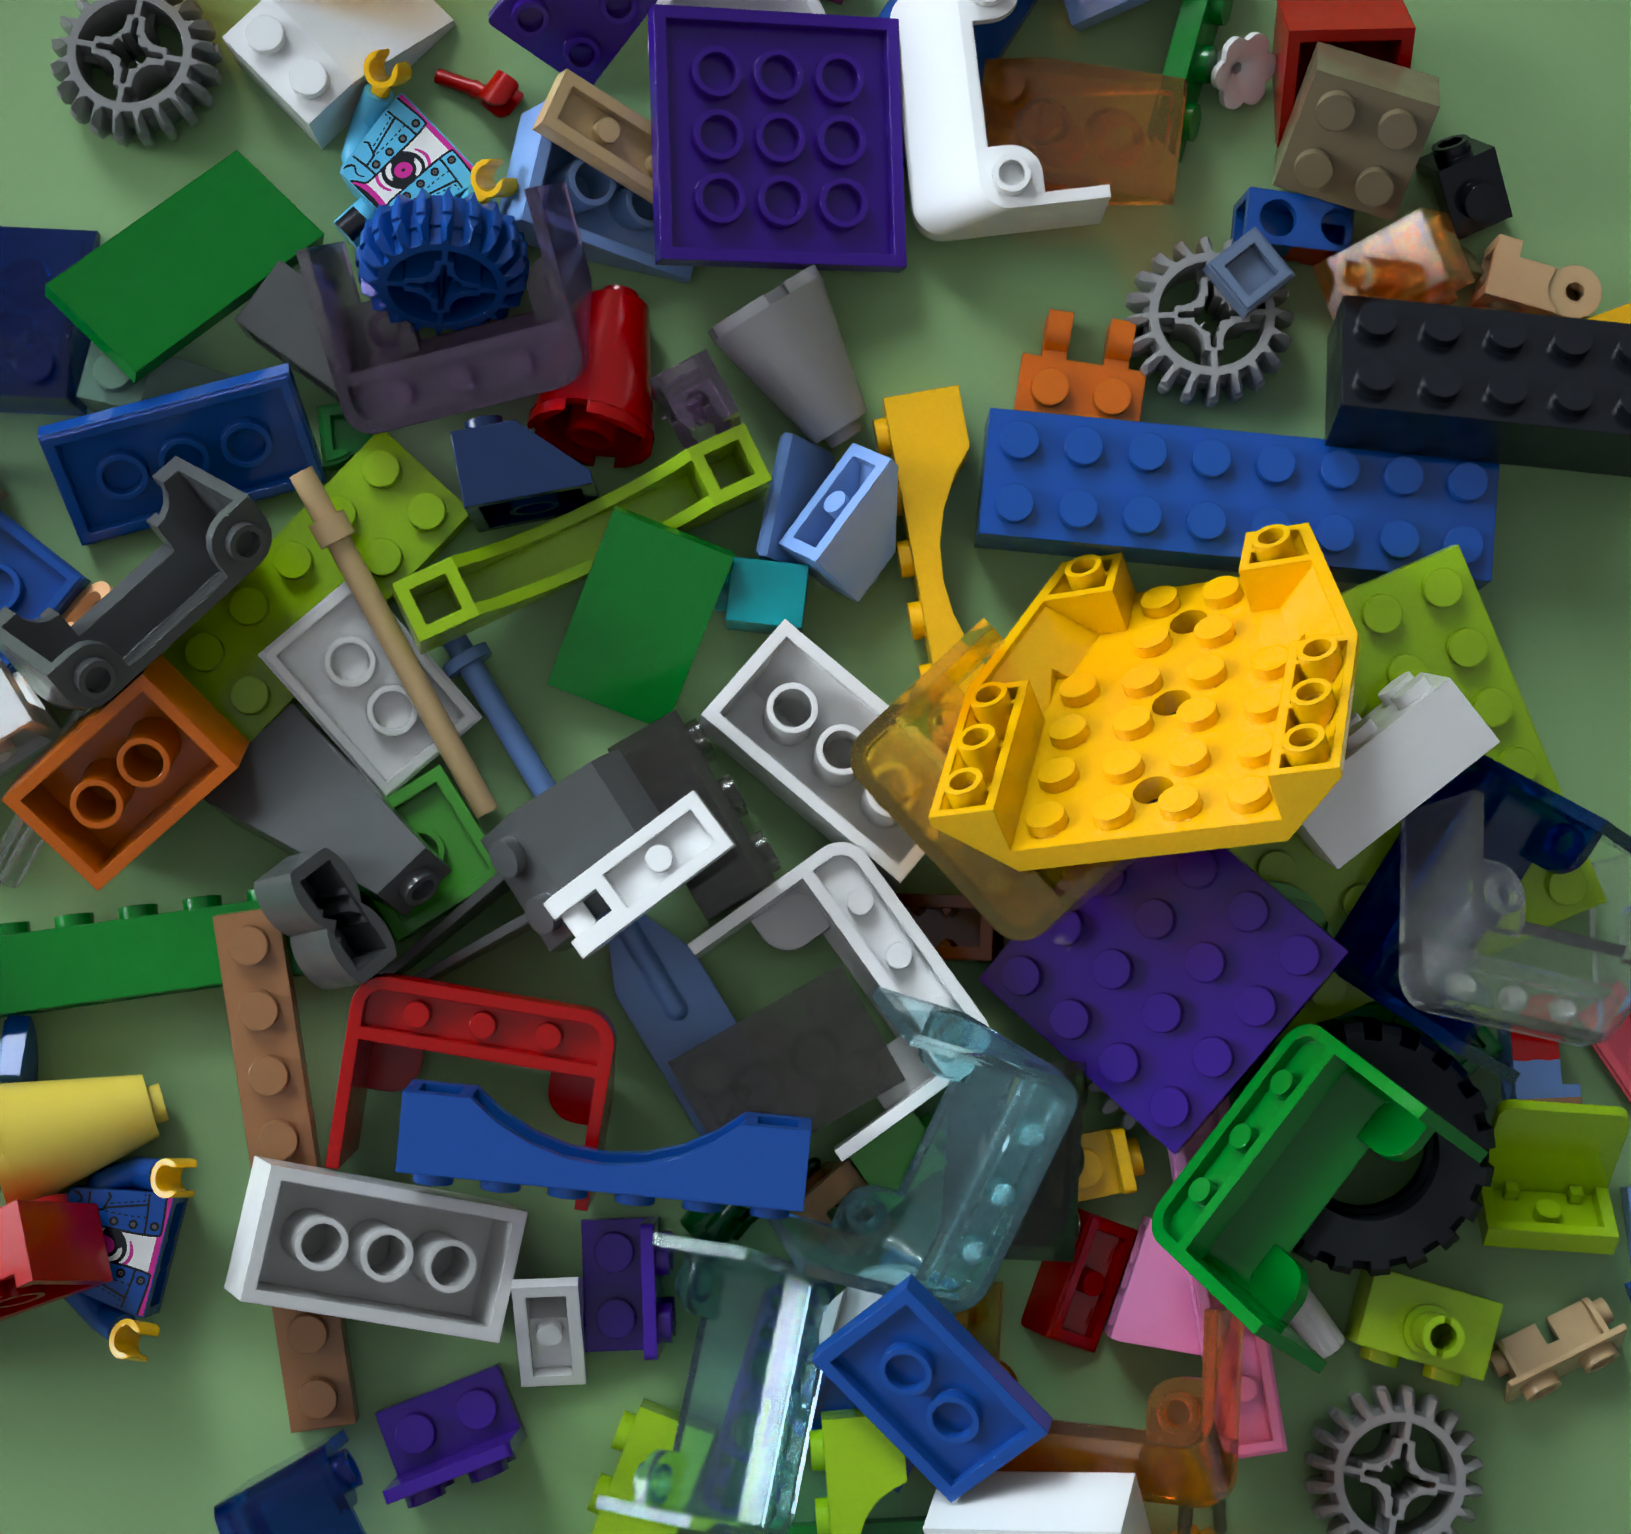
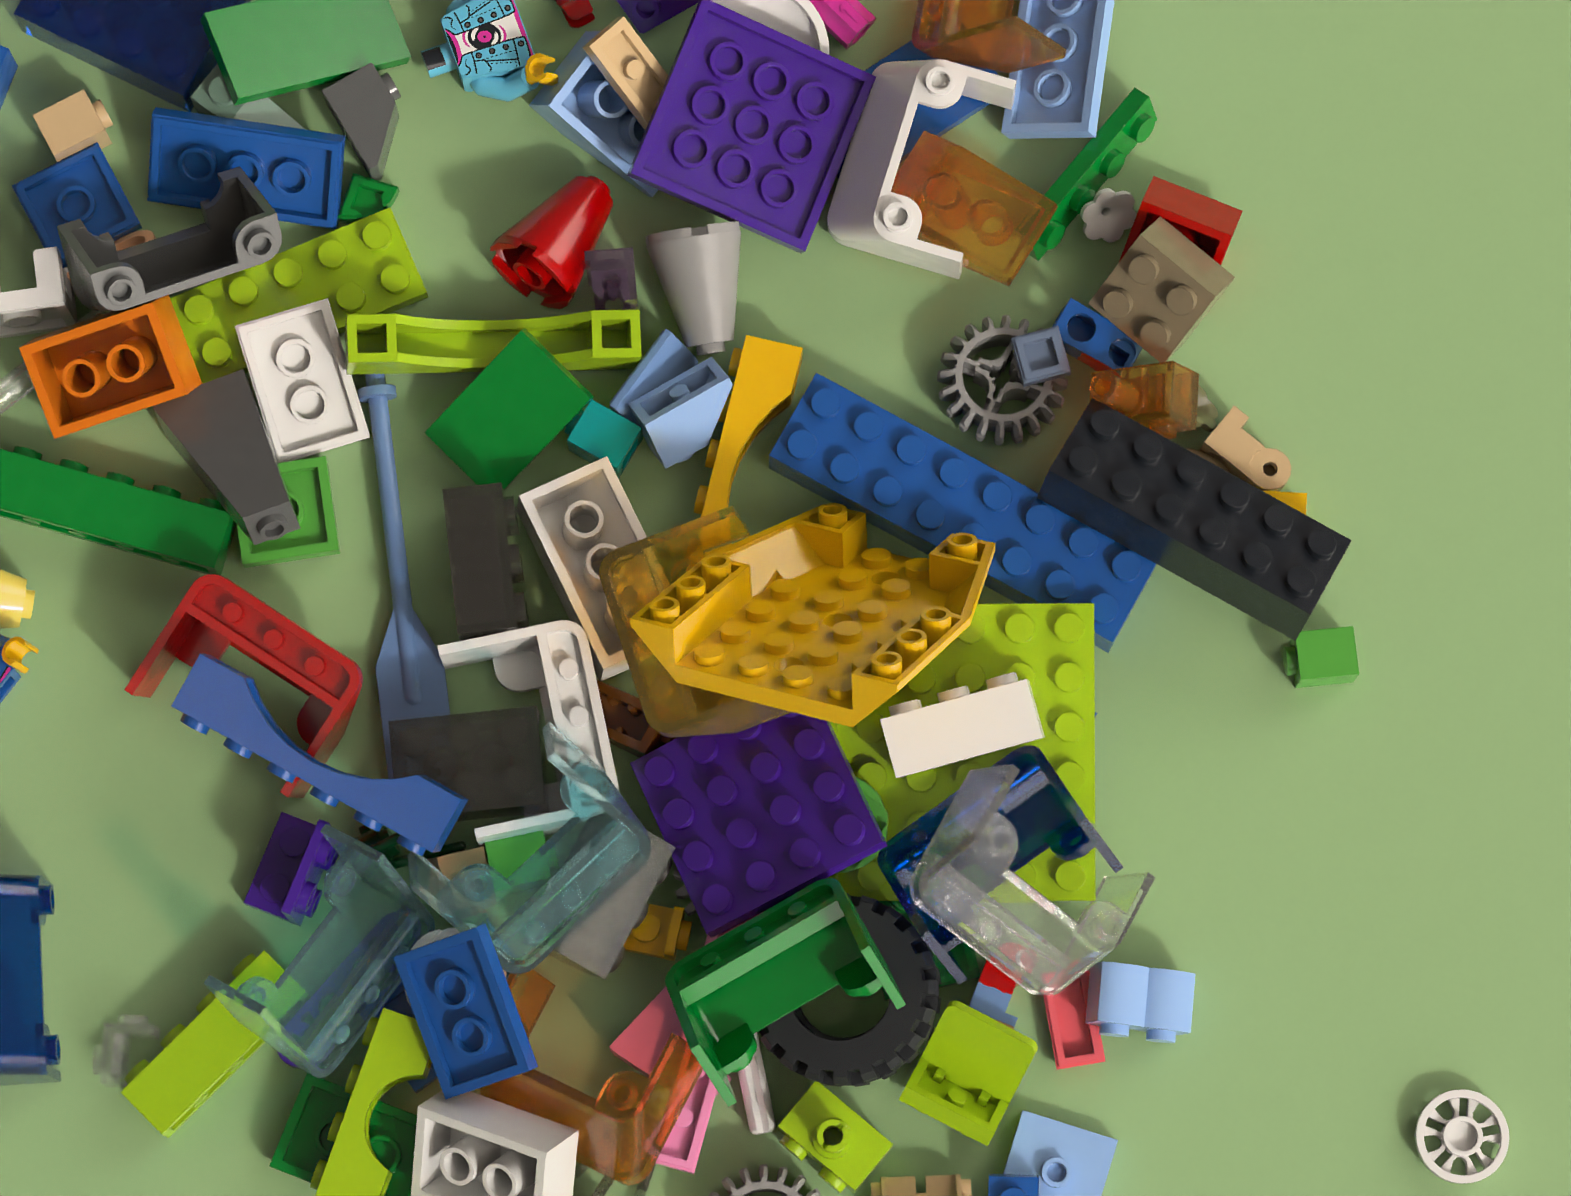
camera: 25 degrees right, 5 degrees down
(282, 1127) = (96, 685): medium nougat plate -> none
(321, 911) = (200, 528): dark grey brick -> none
(333, 531) = (324, 263): tan bar -> none
(375, 1250) = (134, 761): white brick -> none
(397, 380) = (415, 178): clear purple windscreen -> none
(442, 261) = (482, 112): blue gear -> none
(450, 1433) = (127, 914): dark purple bracket -> none
(515, 475) = (464, 279): dark blue slope -> none
(540, 853) = (385, 554): dark grey slope -> none
(550, 1331) = (226, 873): white slope -> none
(641, 872) = (424, 577): white plate -> none
(1075, 1297) = (608, 1006): red slope -> none
(1080, 388) = (892, 389): orange plate -> none
(1466, 183) = (1231, 362): black bracket -> none

